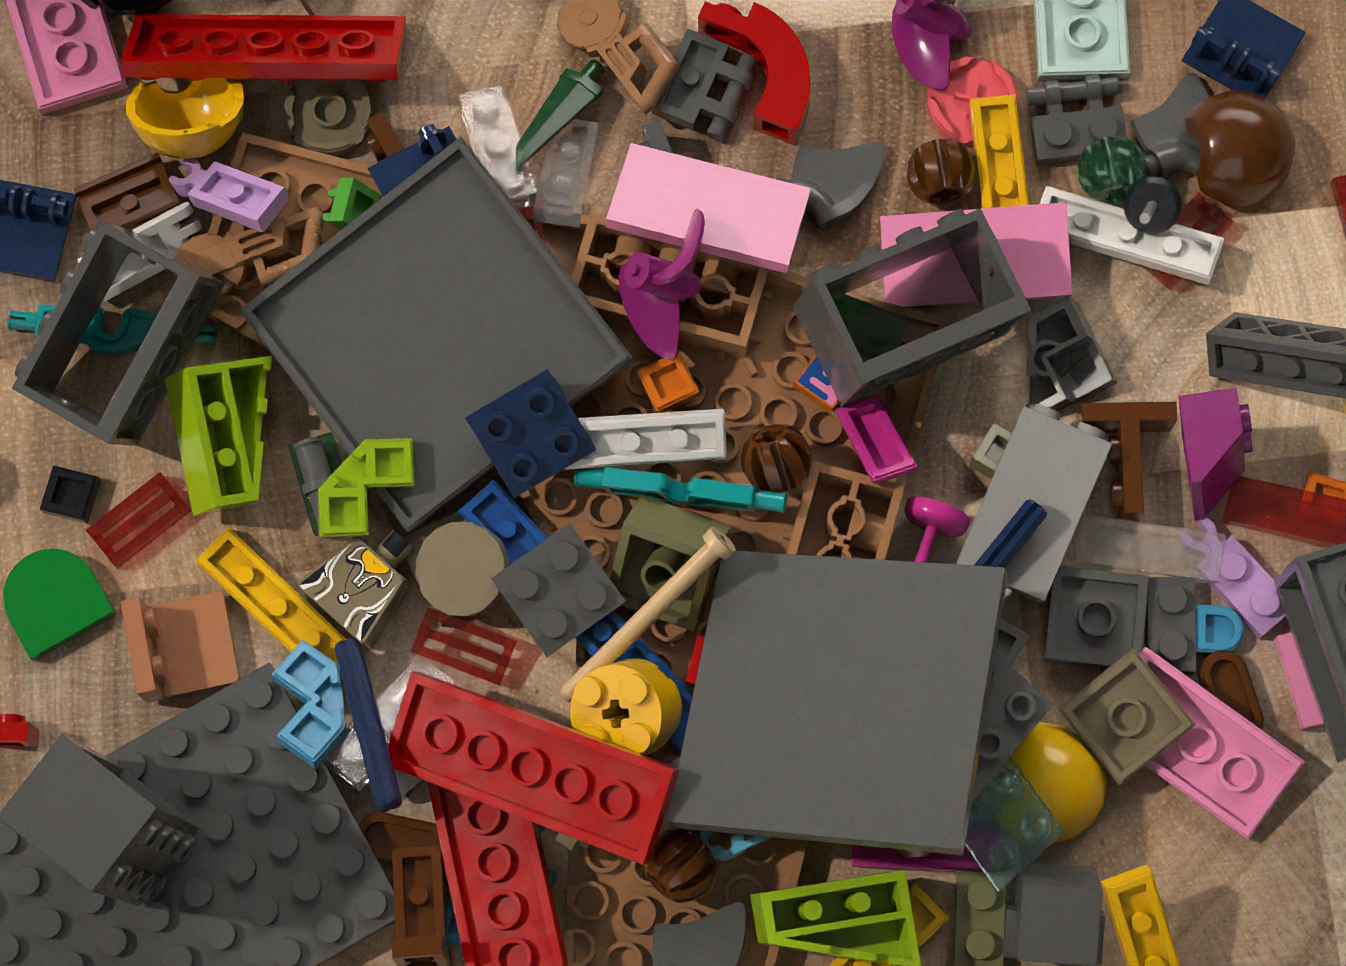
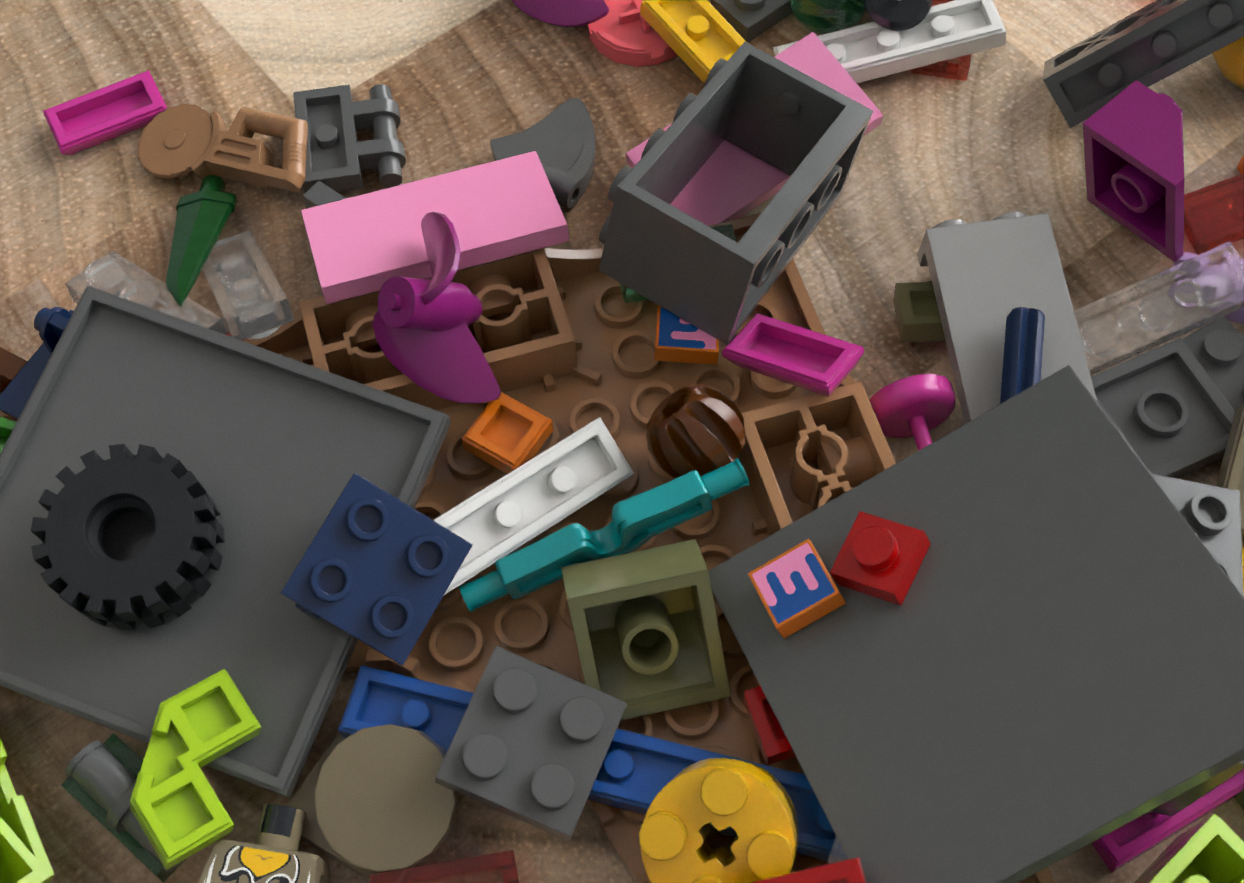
camera: 35 degrees left, 15 degrees down
(434, 333) = (156, 577): none -> black tyre
(715, 546) = (669, 695): tan bar -> none
(760, 597) = (796, 588): none -> tile
(779, 54) = (418, 73): red arch -> none
(815, 611) = (880, 558): none -> red plate
(941, 171) = (657, 81): reddish brown piece -> none
(1064, 357) = (914, 183): dark grey slope -> none
(1127, 422) = (1086, 263): reddish brown bracket -> none

